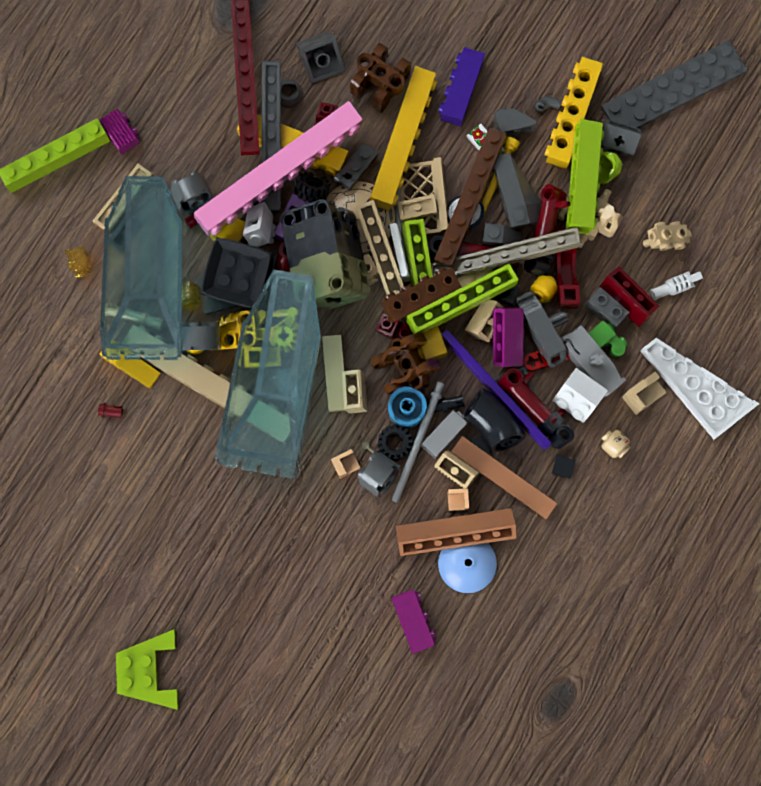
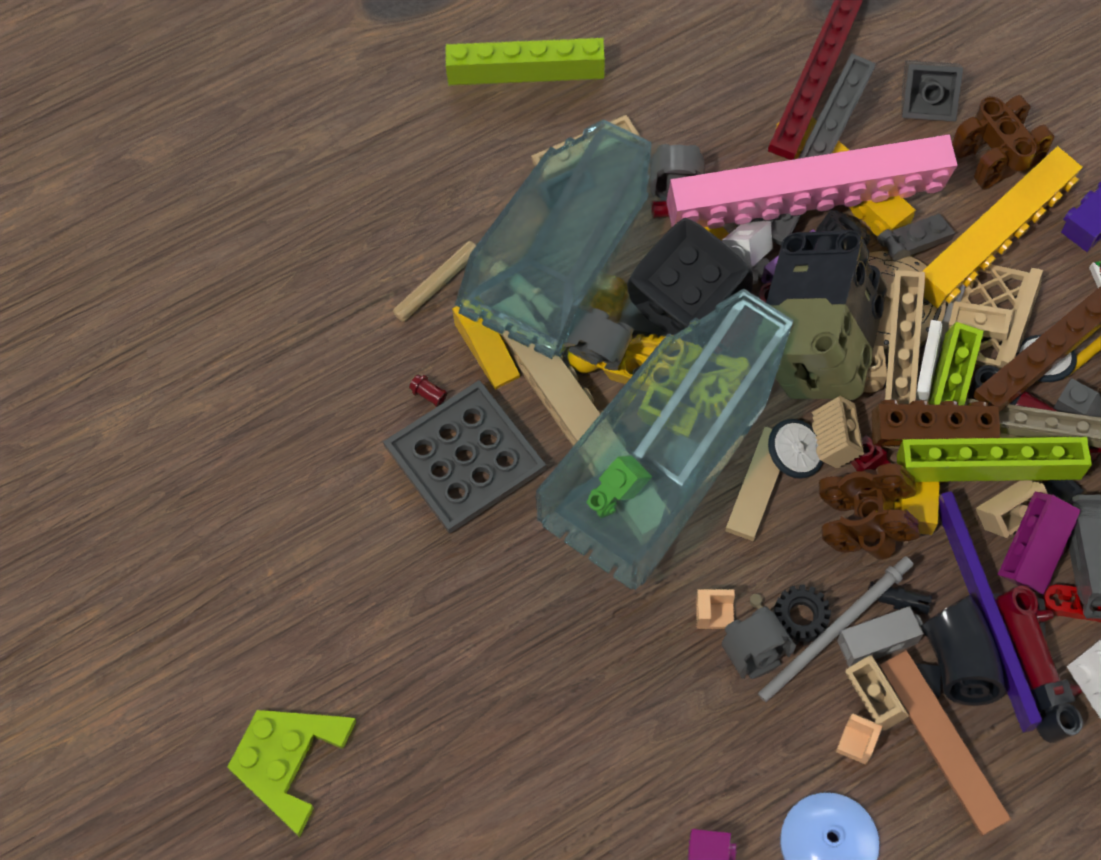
camera: 30 degrees right, 15 degrees down
(77, 336) = (434, 282): none -> tan axle
(78, 261) = (488, 192): clear yellow brick -> none
(119, 131) = (623, 68): magenta brick -> none
(167, 437) = (477, 496): none -> dark grey piece
(256, 422) = (619, 482): none -> bright green brick
(293, 100) = (866, 126): dark grey piece -> none
(346, 341) = (794, 448): none -> white wheel
(354, 391) = (776, 516): tan brick -> none
(366, 321) = (837, 432): none -> tan brick
(412, 398) = (858, 568): dark azure brick -> none
(456, 532) = (836, 783): nougat brick -> none
(563, 466) = (1043, 771): black tile -> none

